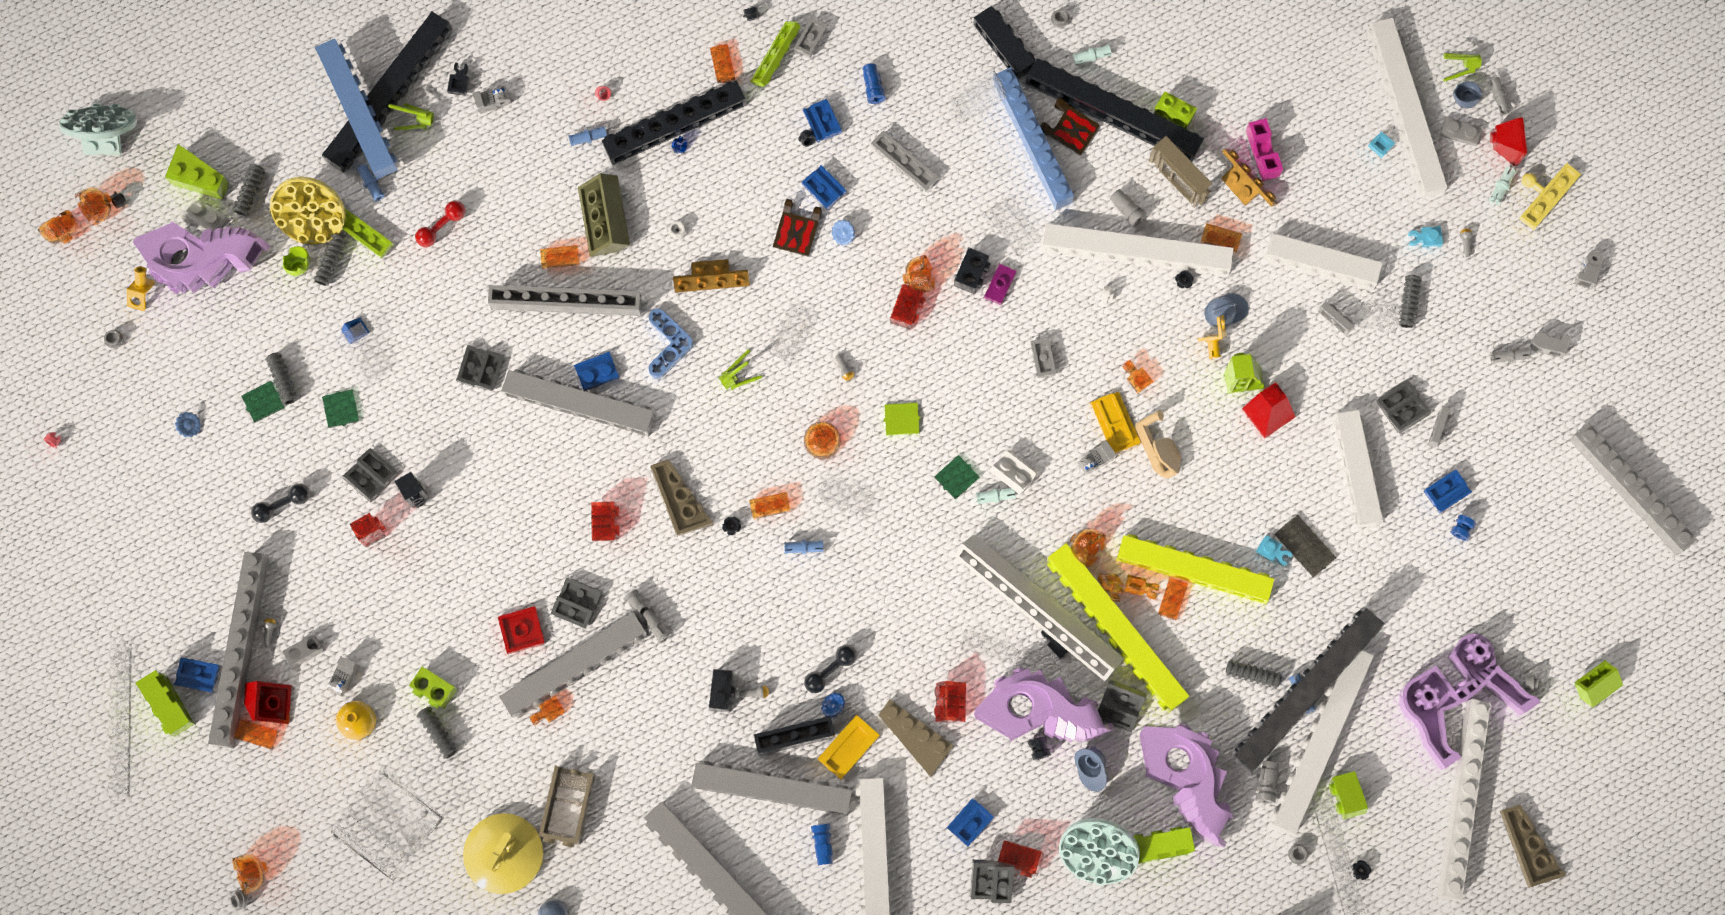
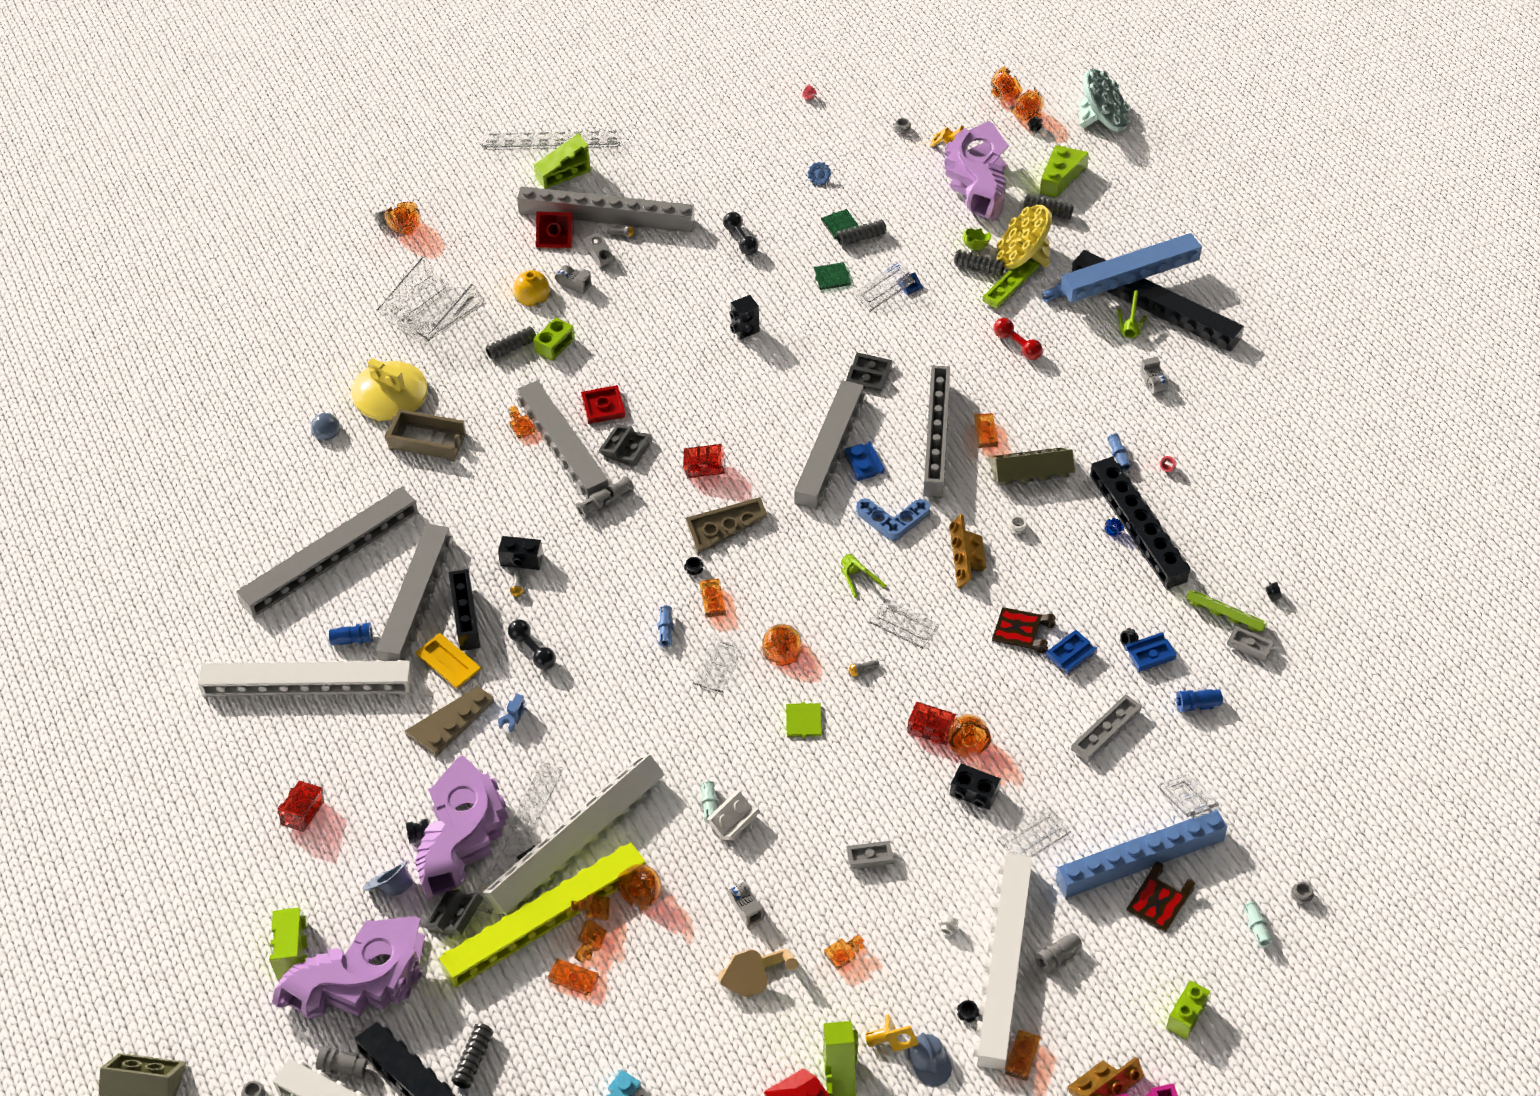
camera: 90 degrees right, 25 degrees down
(197, 675) = (588, 182): blue plate -> none
(202, 216) = (1020, 178): white bracket -> none
(256, 734) = (527, 227): clear orange plate -> none
(368, 529) = (708, 287): clear red brick -> none
(370, 475) = (767, 294): dark grey slope -> none
(458, 82) = (1171, 352): black plate -> none
(722, 63) = (1212, 566): clear orange plate -> none
(833, 705) = (493, 647): blue piece -> none
(843, 232) = (1018, 668): piece -> none
(905, 676) = (515, 710): none -> medium blue plate
(950, 702) = (480, 746): clear red brick -> none
(956, 477) = (734, 769): clear green piece -> none
(970, 822) = (350, 764): blue plate -> none
(992, 881) = (282, 776): dark grey slope -> none
(1000, 284) = (960, 817): magenta plate -> none
(1003, 41) = (1262, 830): black brick -> none
(1099, 851) = (296, 876): light aqua bracket -> none
(1111, 108) = (1182, 944): black brick -> none
(1115, 422) = (790, 929): yellow piece -> none
(1181, 172) = (1103, 1006): dark tan door -> none
(1195, 569) = (603, 1001): neon yellow brick -> none

